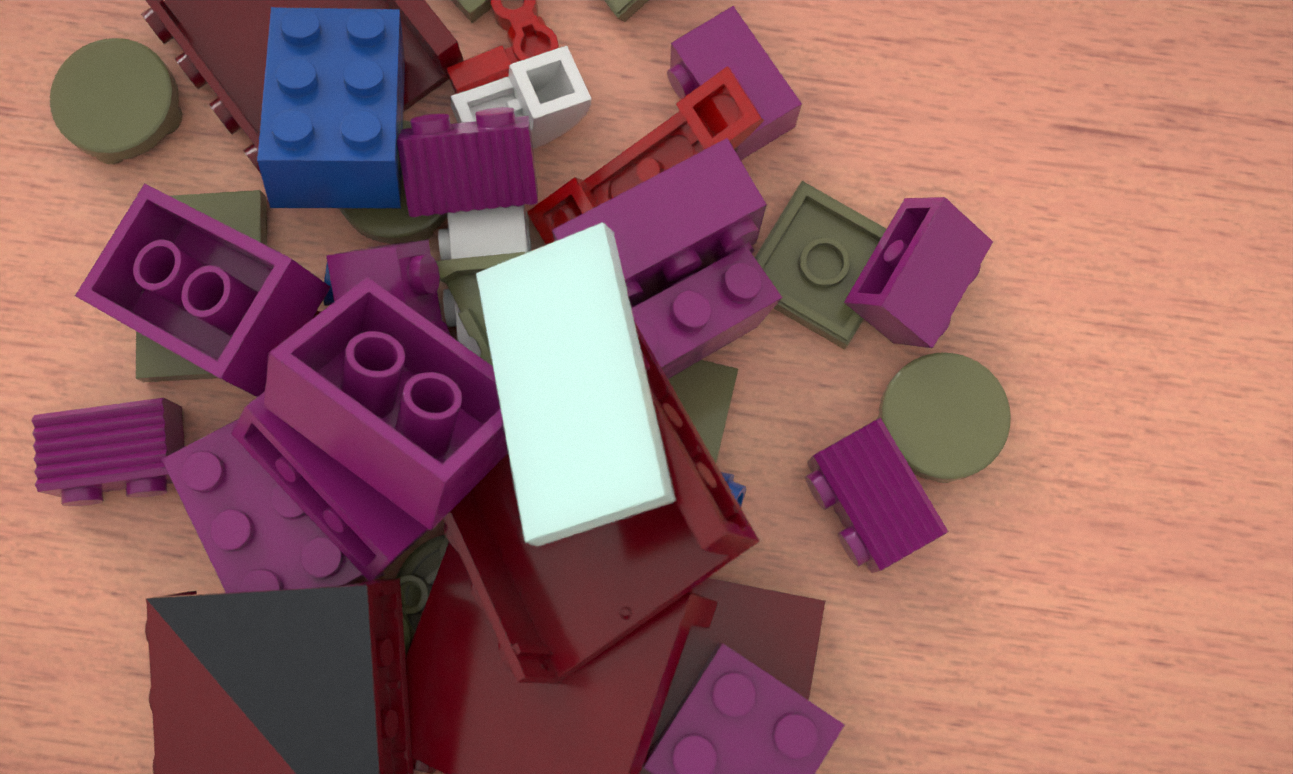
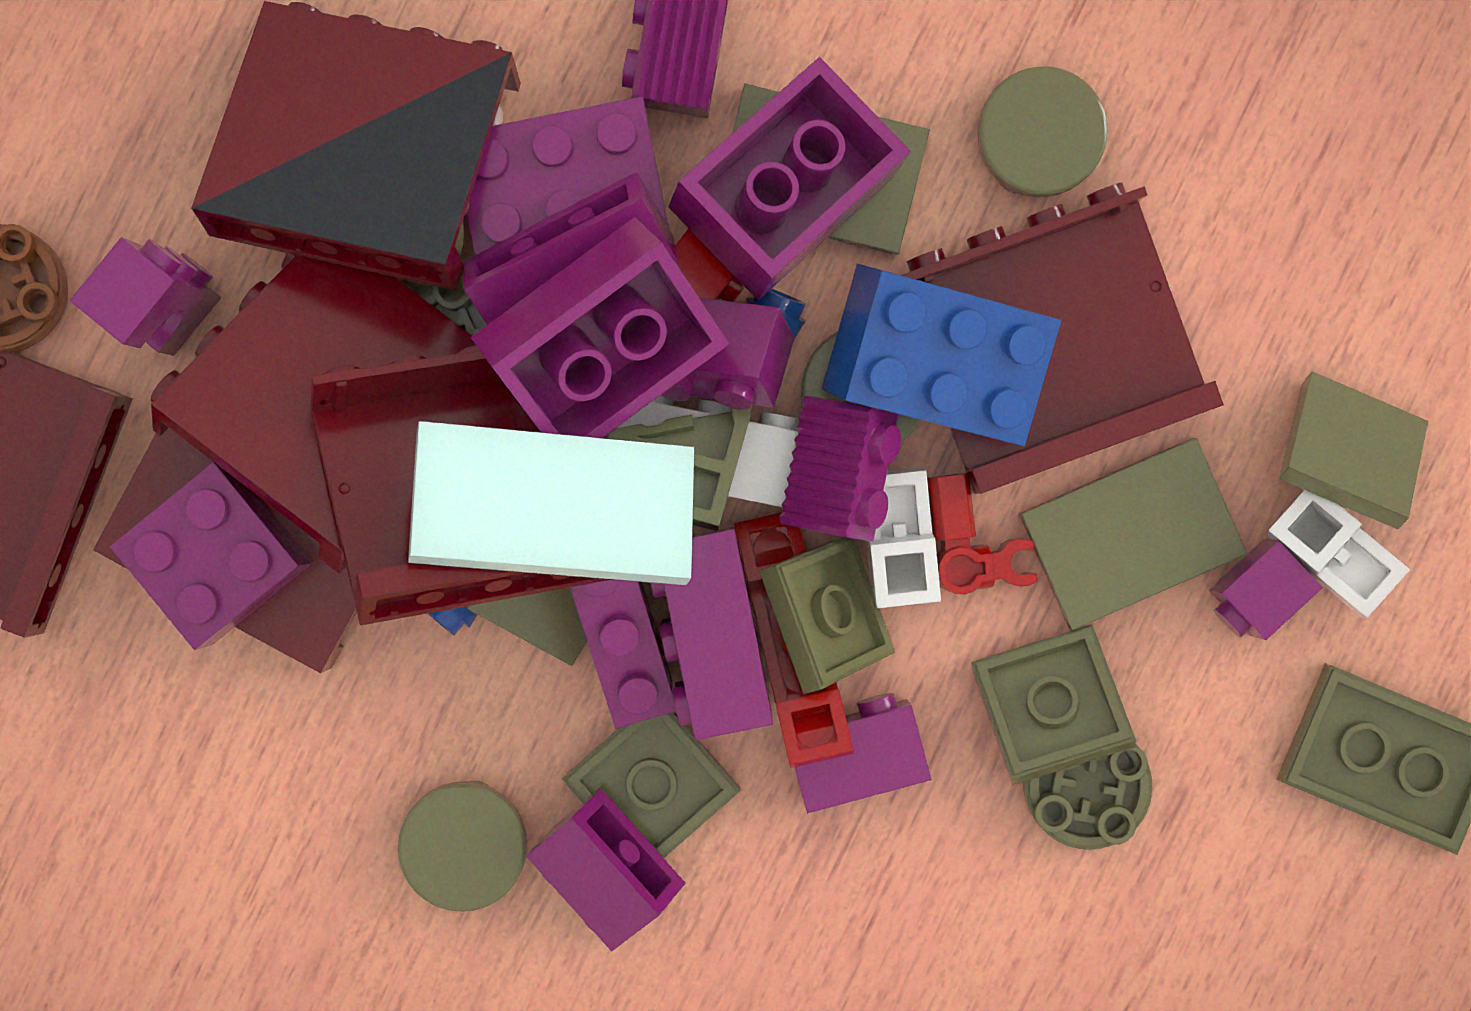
camera: 105 degrees right, 10 degrees up
(611, 143) = (827, 613): none -> olive tile
(874, 497) = (405, 753): magenta brick -> none

